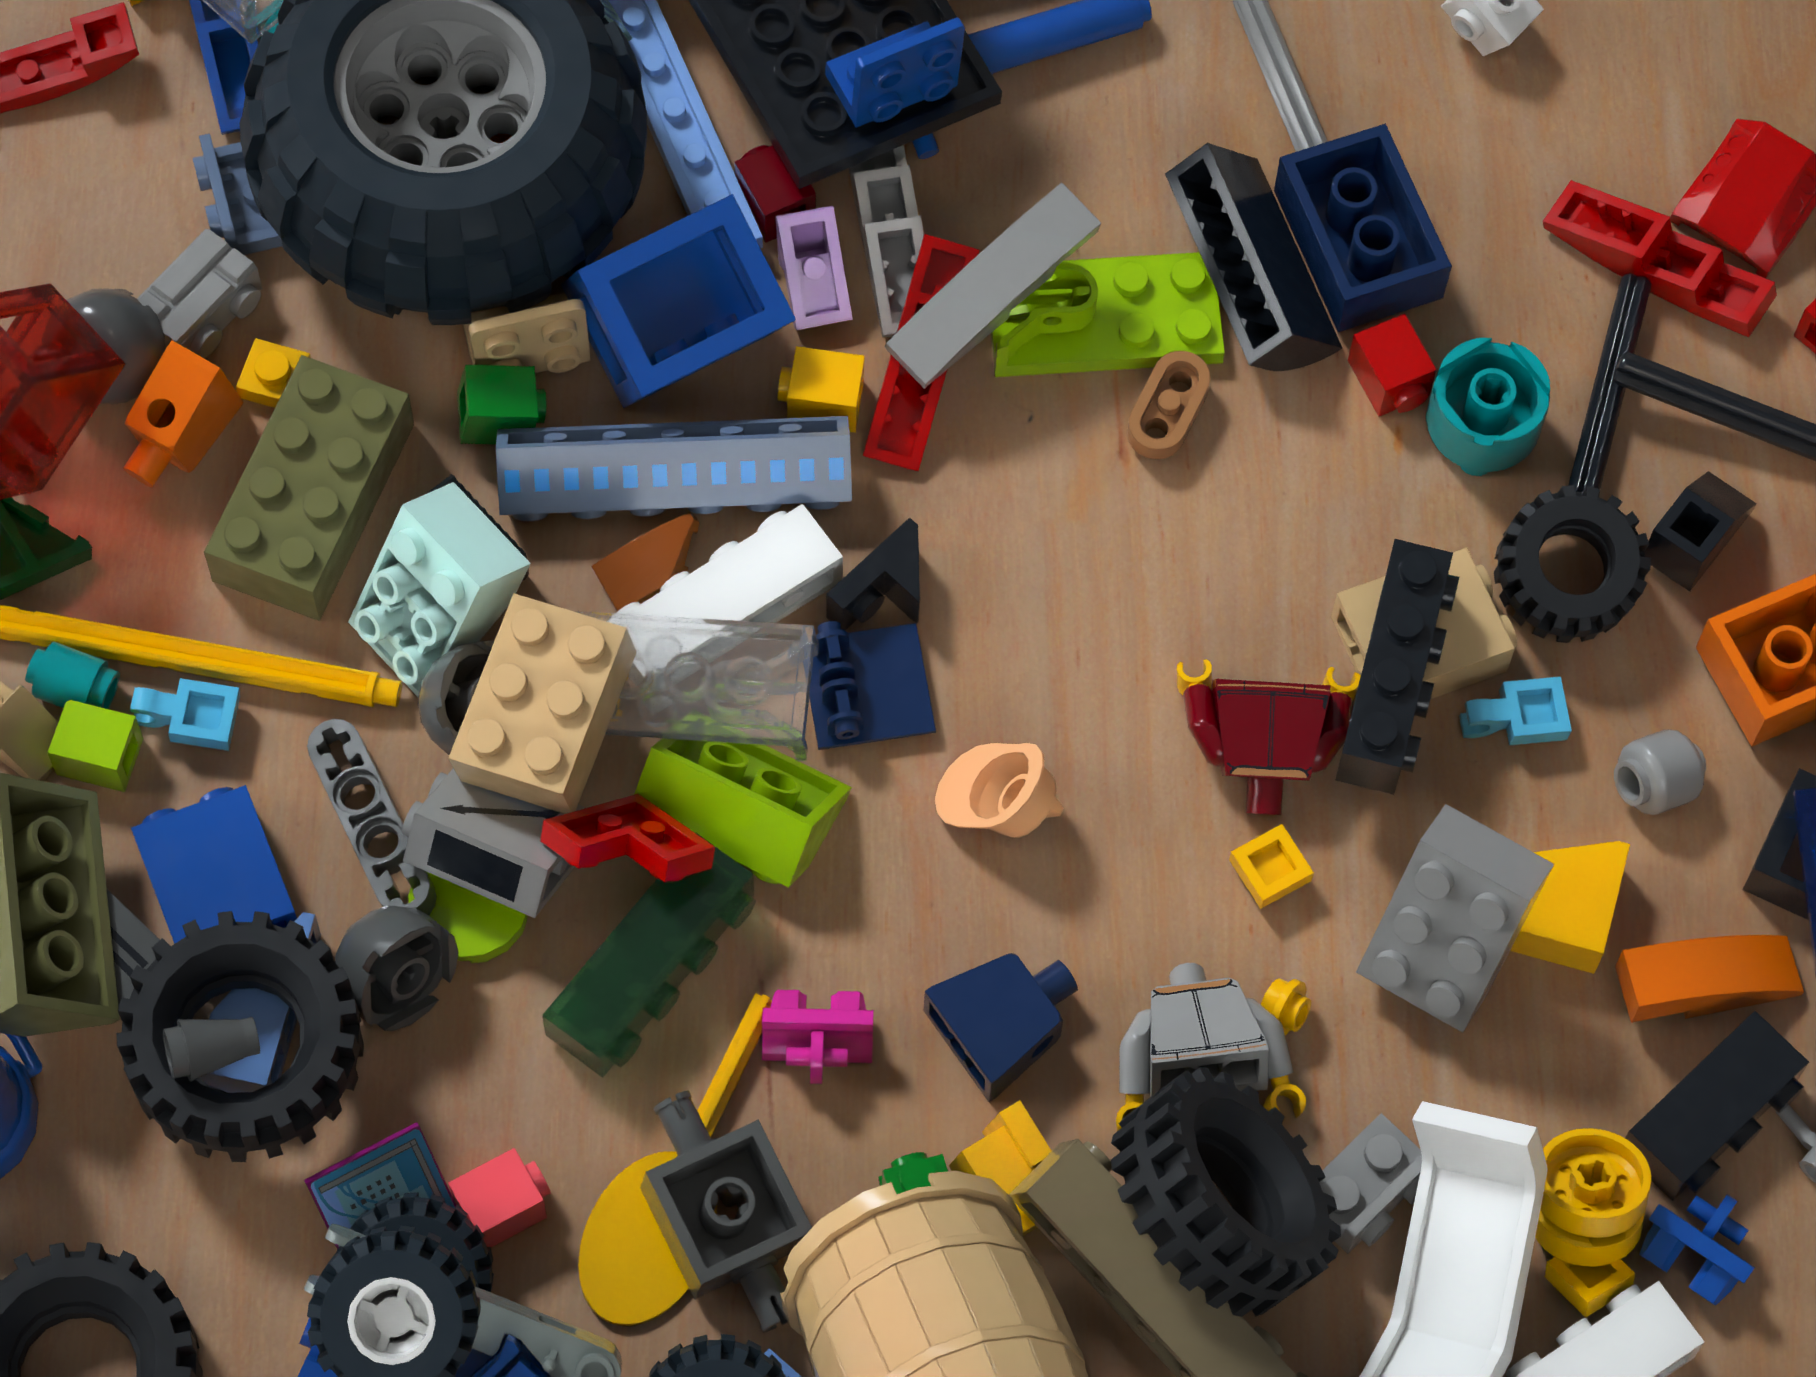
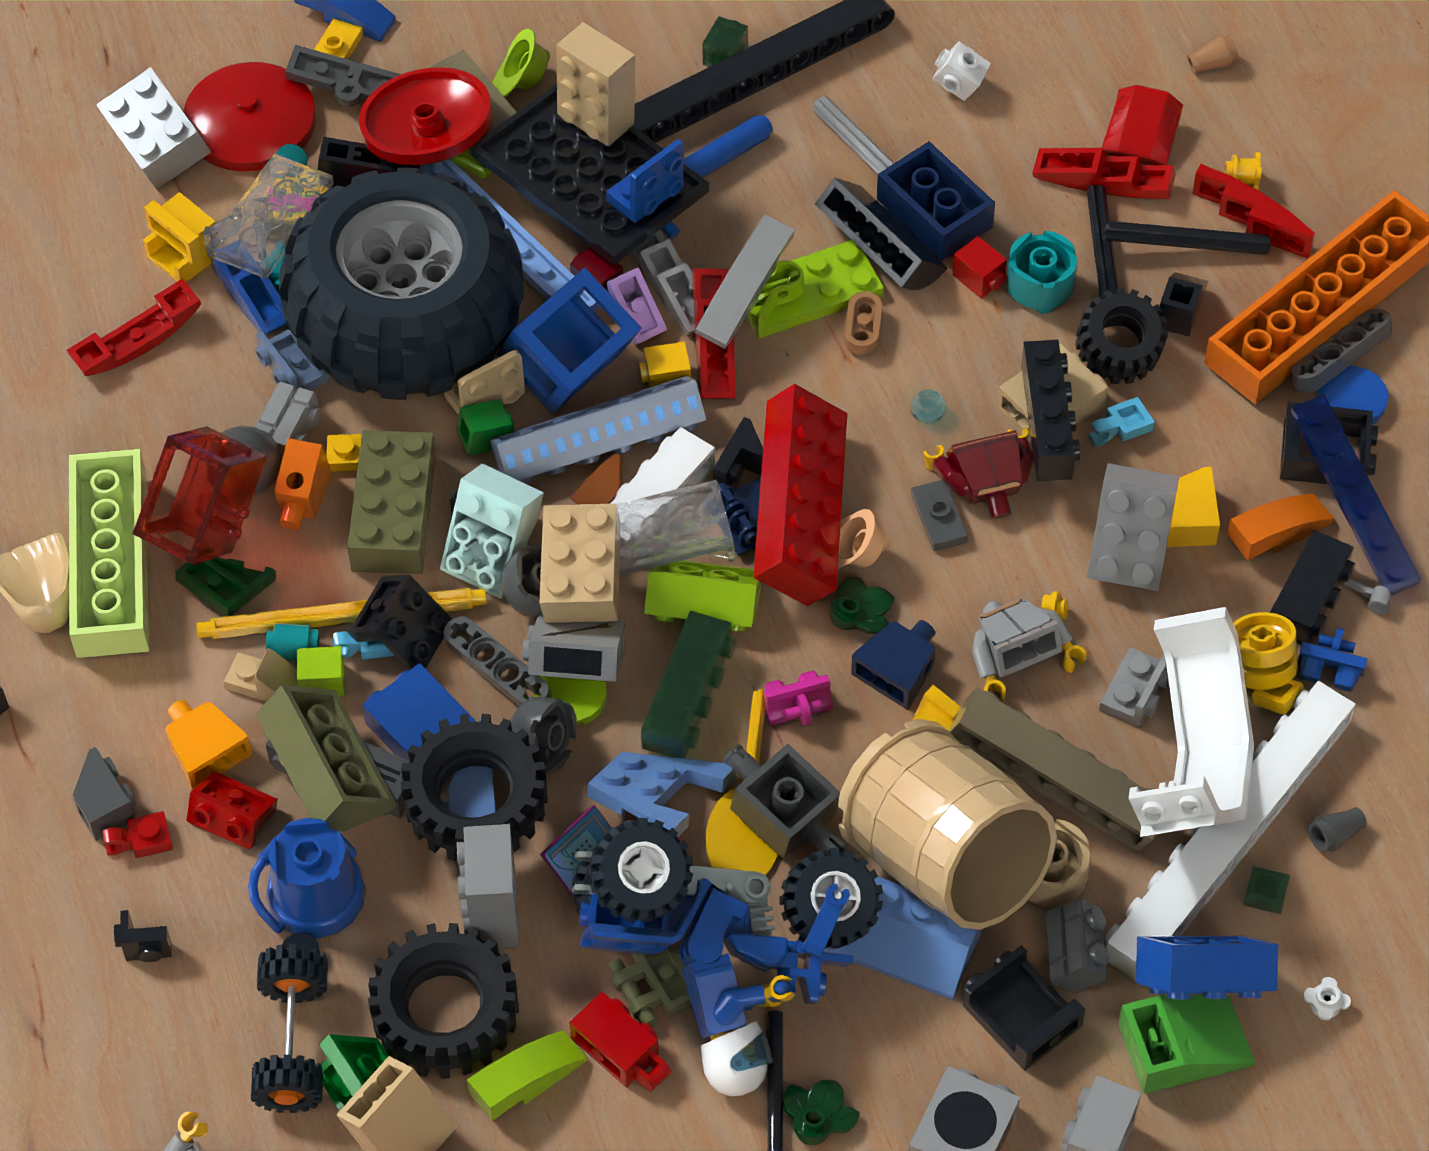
camera: 15 degrees left, 10 degrees down
(204, 1210) = (489, 884): none -> light grey brick
(207, 1045) = (461, 789): dark grey cone -> none
(247, 703) = (402, 619): none -> black bracket
(517, 1101) = (647, 782): none -> medium blue wing
(632, 829) = (655, 618): red plate -> none
(947, 685) = (801, 495): none -> red brick
(989, 901) = (860, 606): none -> dark green plate
(1164, 781) = (939, 515): none -> dark grey plate
(1218, 585) = (928, 406): none -> clear light blue plate
(1271, 866) = (1017, 540): yellow plate -> none
(1279, 1216) = (1065, 699): black tyre -> none
(1660, 772) = (1211, 429): light grey head -> none

